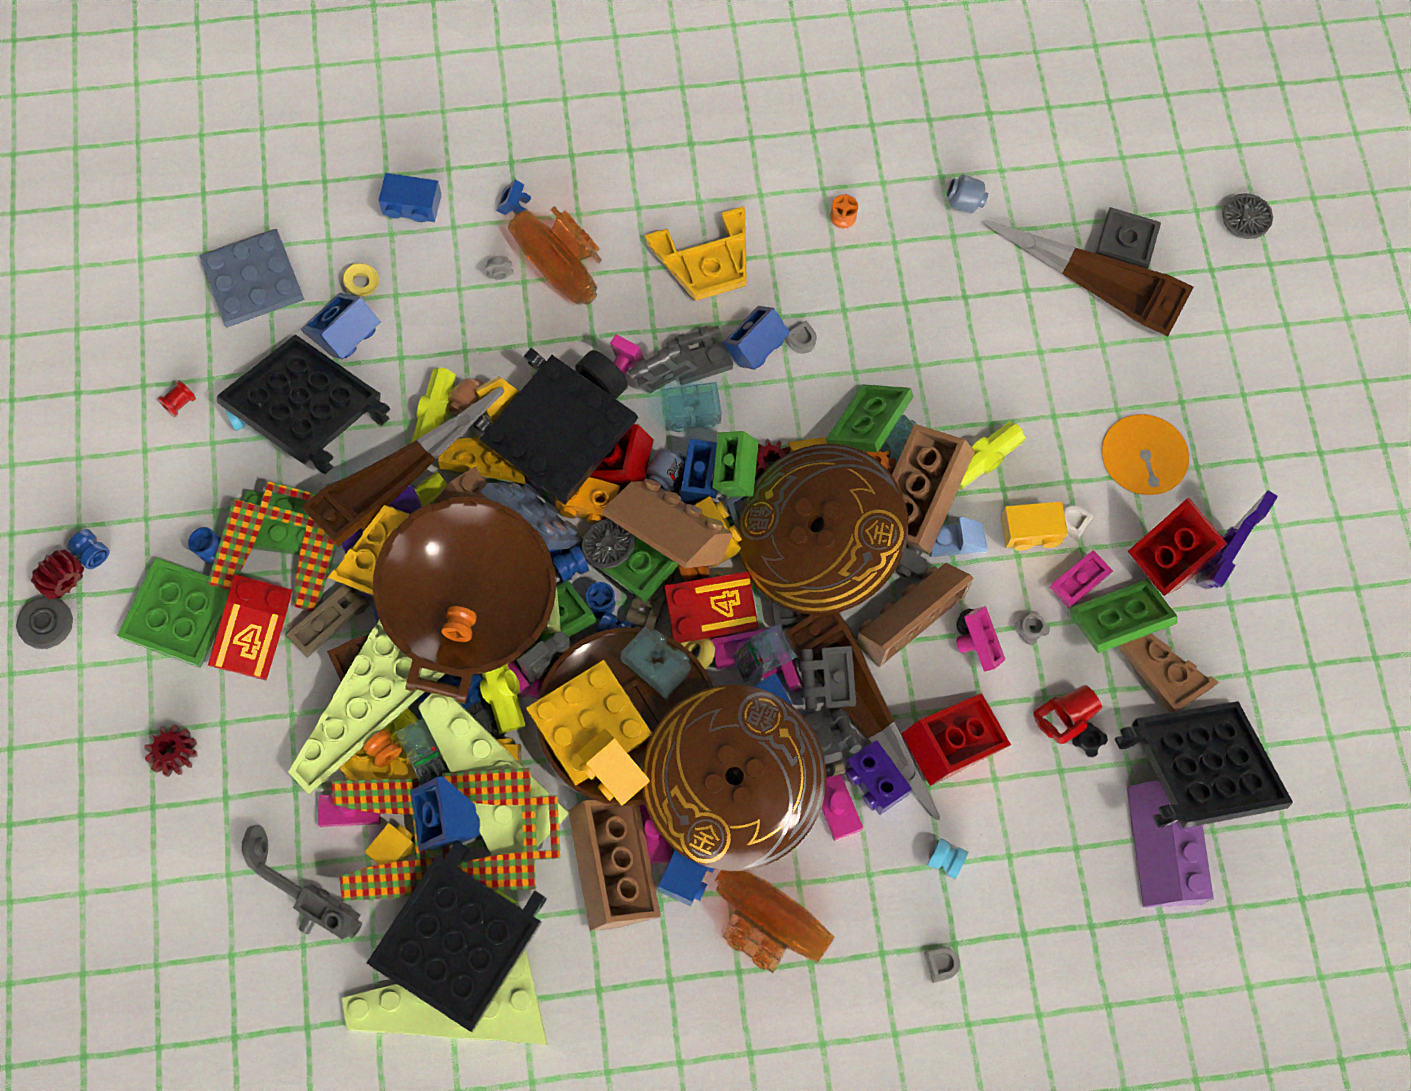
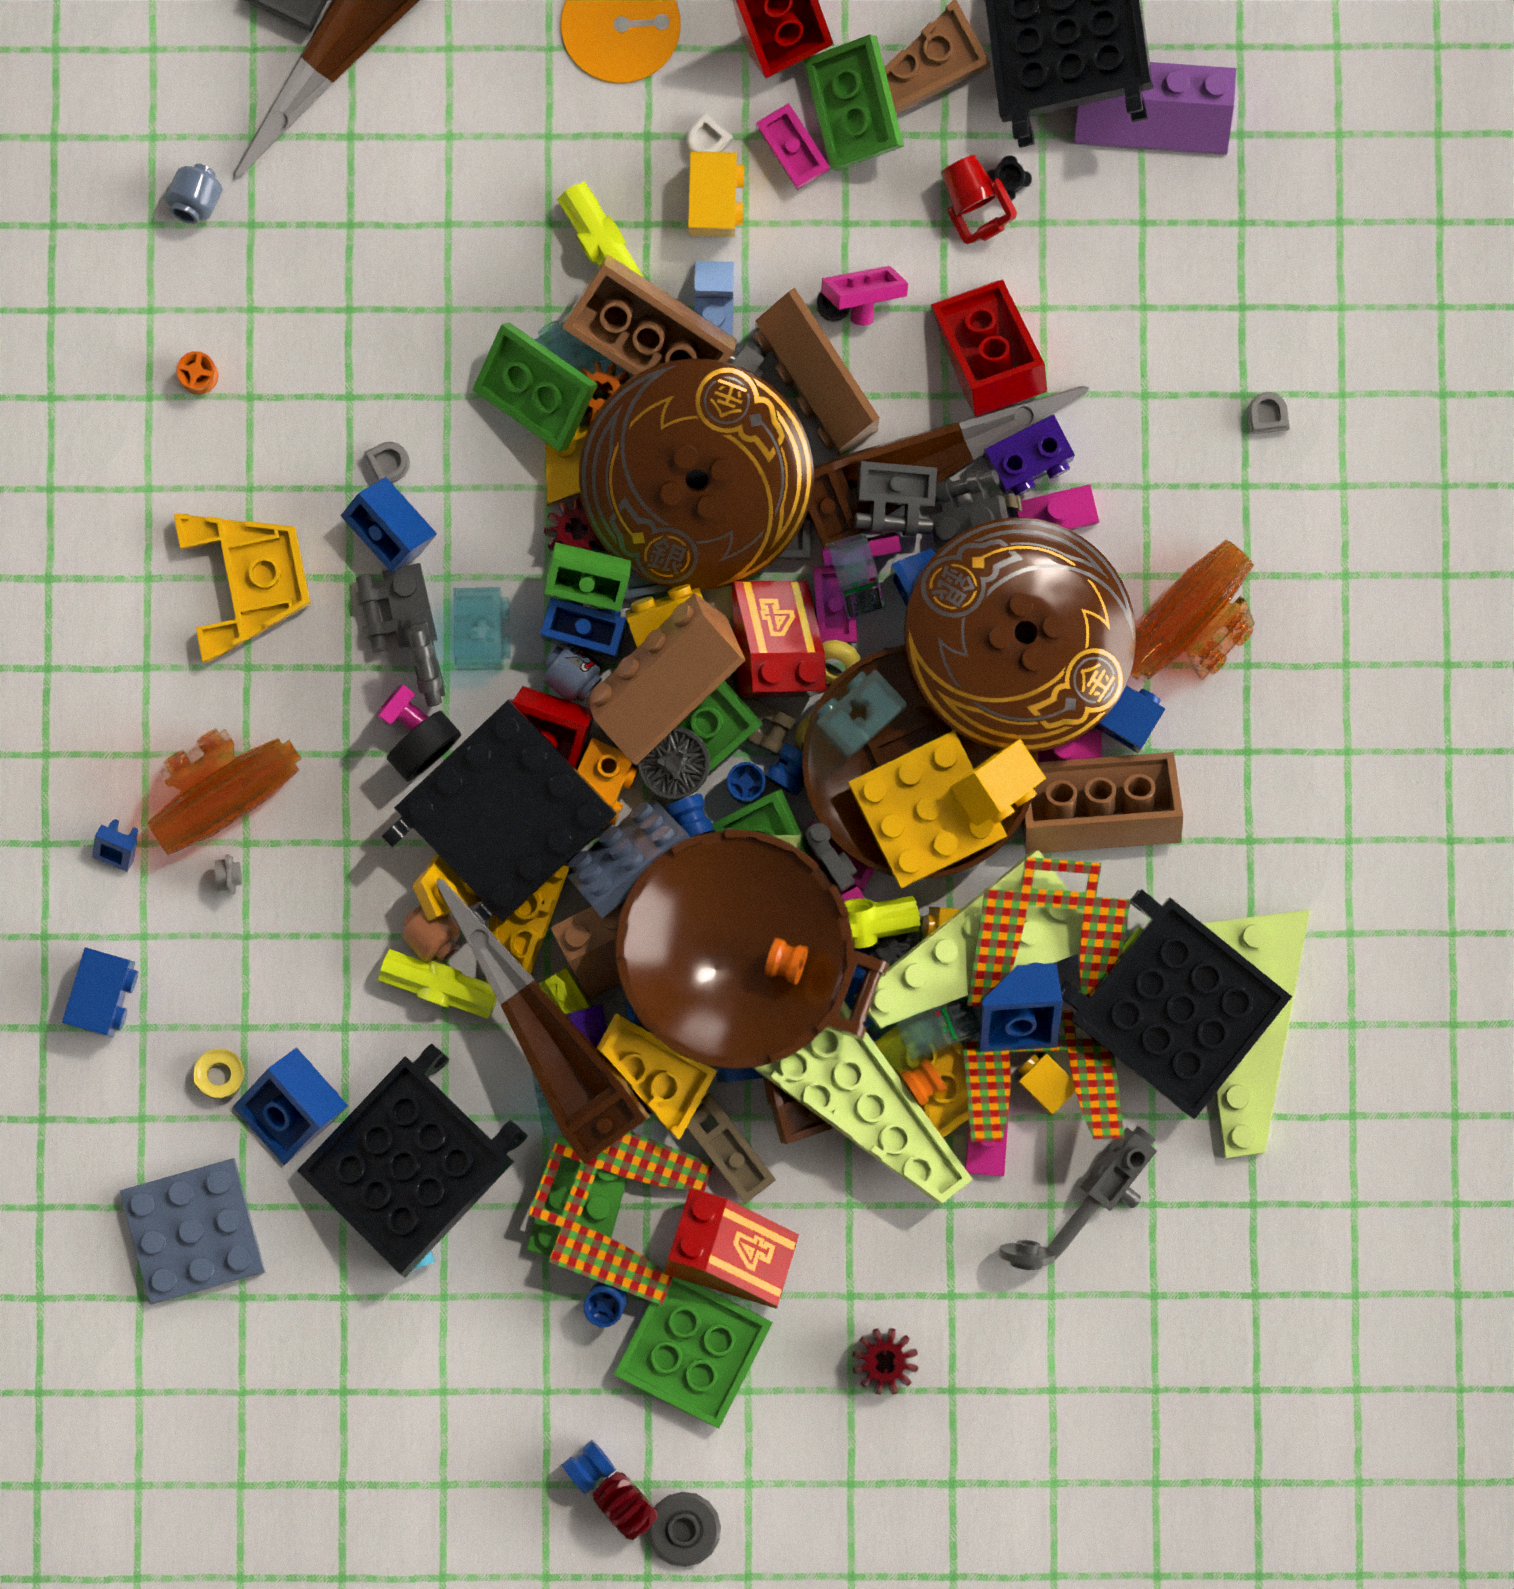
camera: 80 degrees left, 15 degrees up
(176, 398) = (376, 1341): red bush -> none
(950, 859) = (1143, 382): medium azure wheel -> none
(1035, 620) = (853, 212): light grey plate -> none

